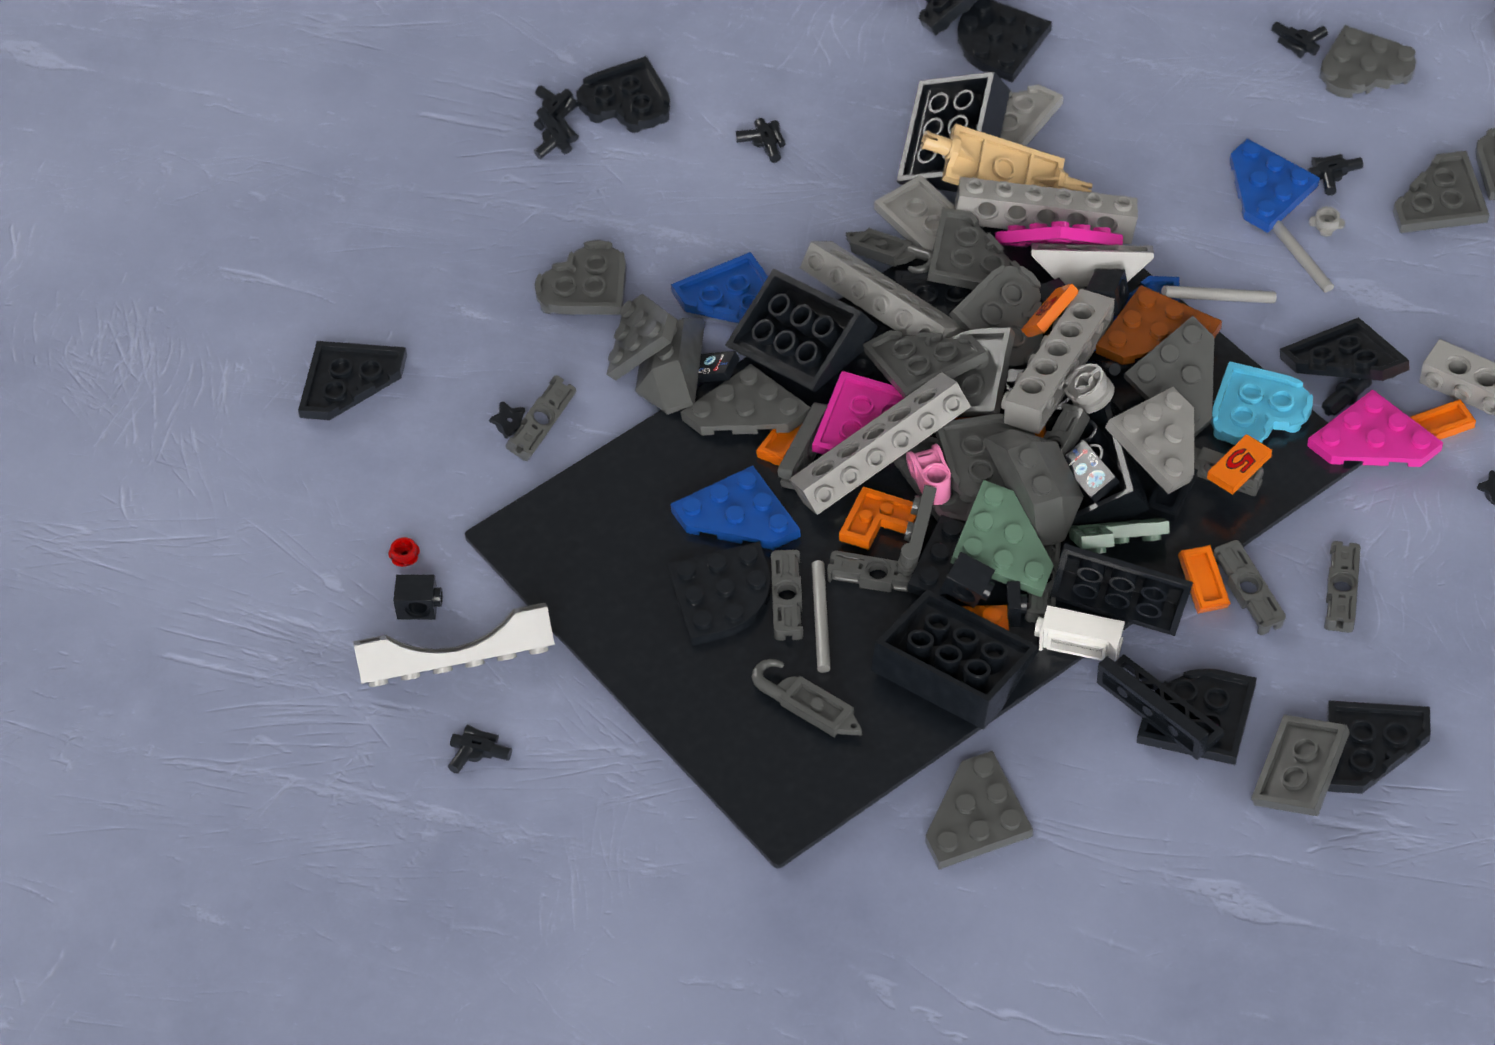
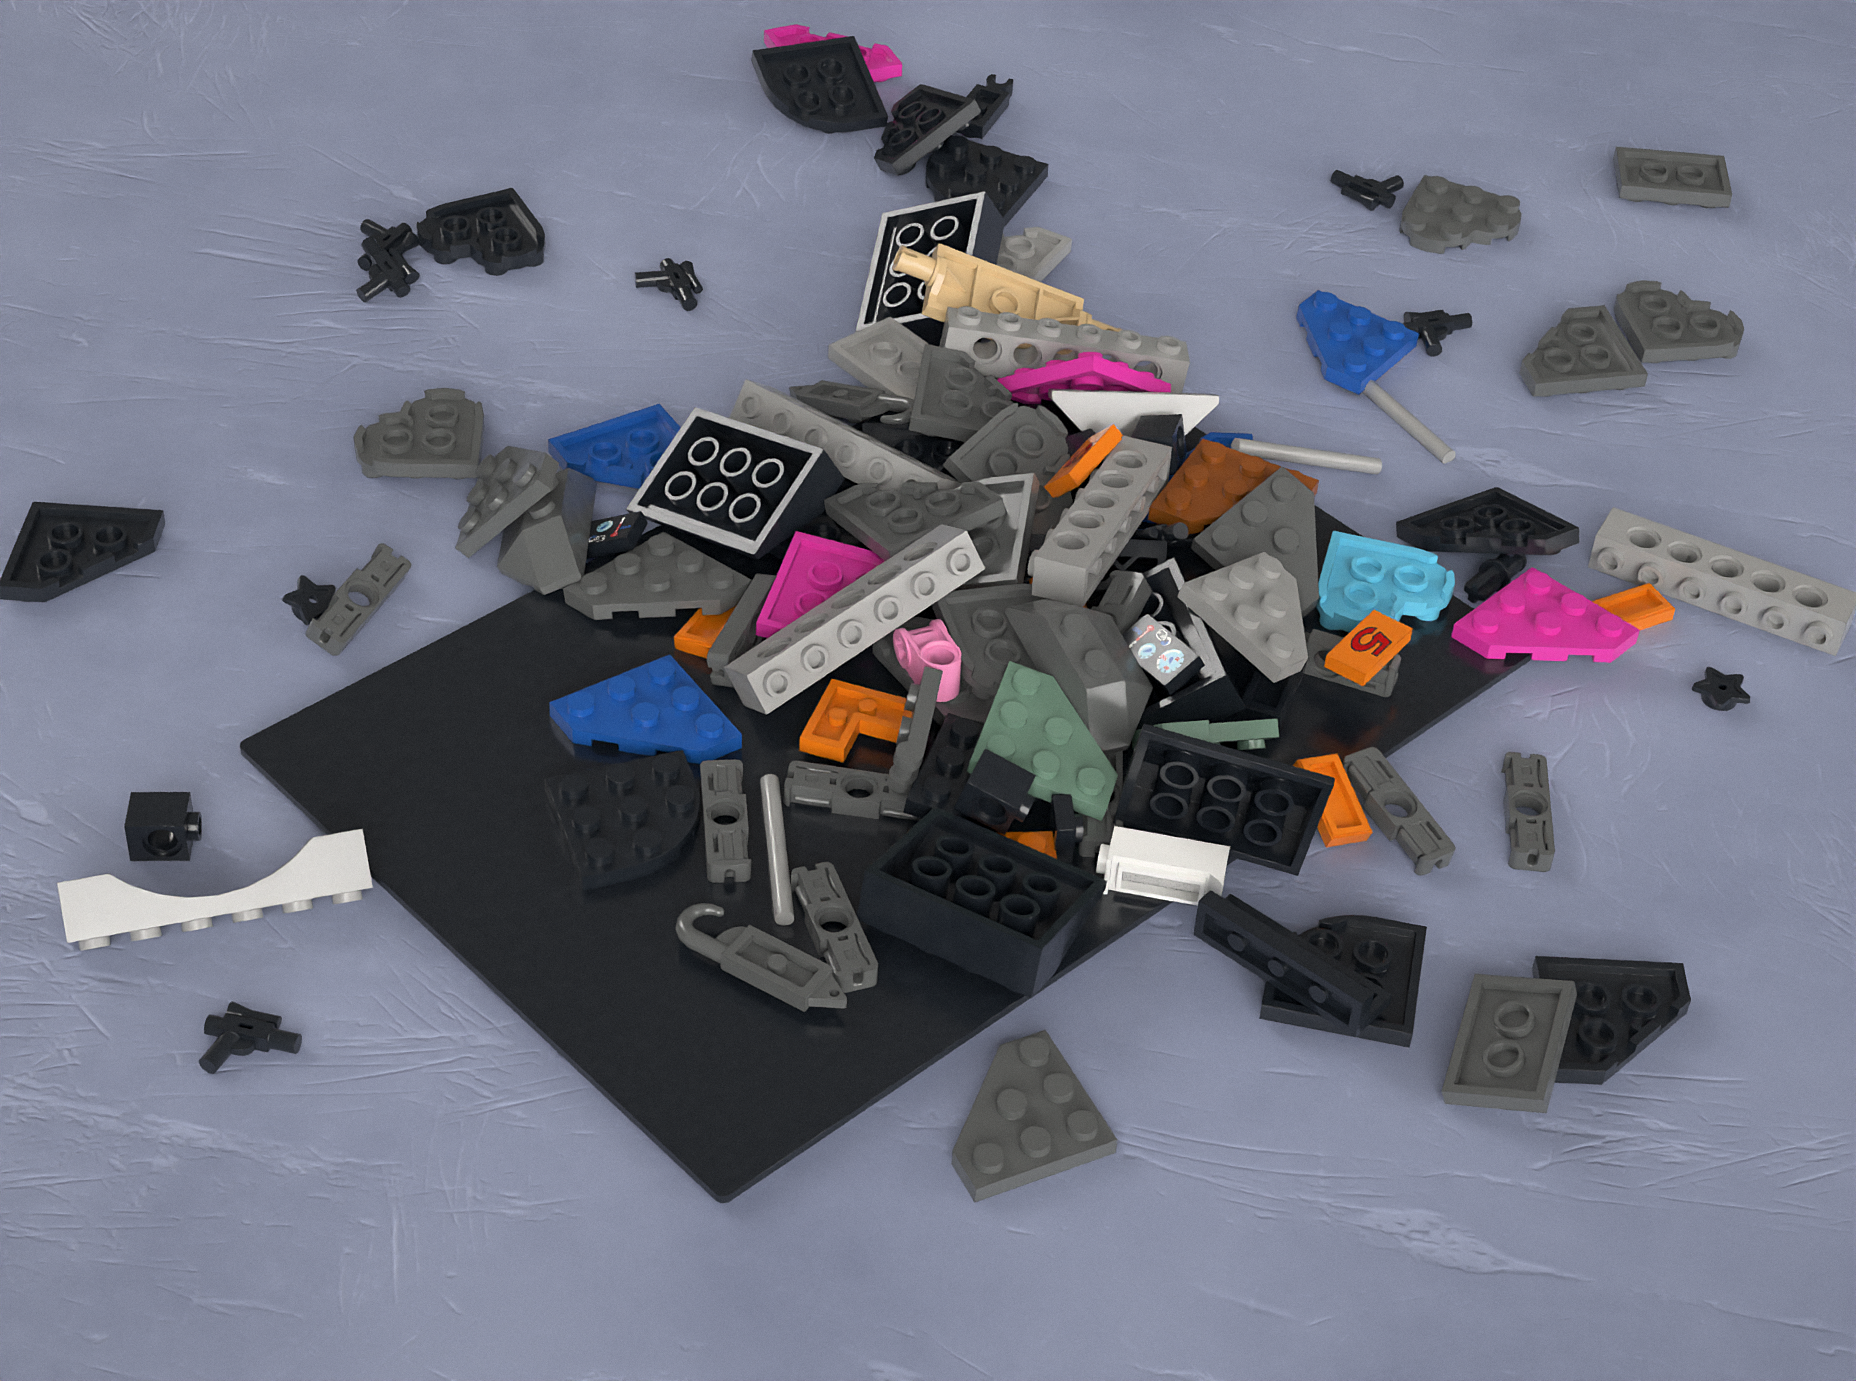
camera: 10 degrees left, 10 degrees down
(404, 546) = (145, 768): red plate -> none
(864, 692) = (847, 950): none -> dark grey piece
(1089, 388) = (1150, 548): light grey wheel -> none
(1327, 221) = (1435, 380): light grey plate -> none

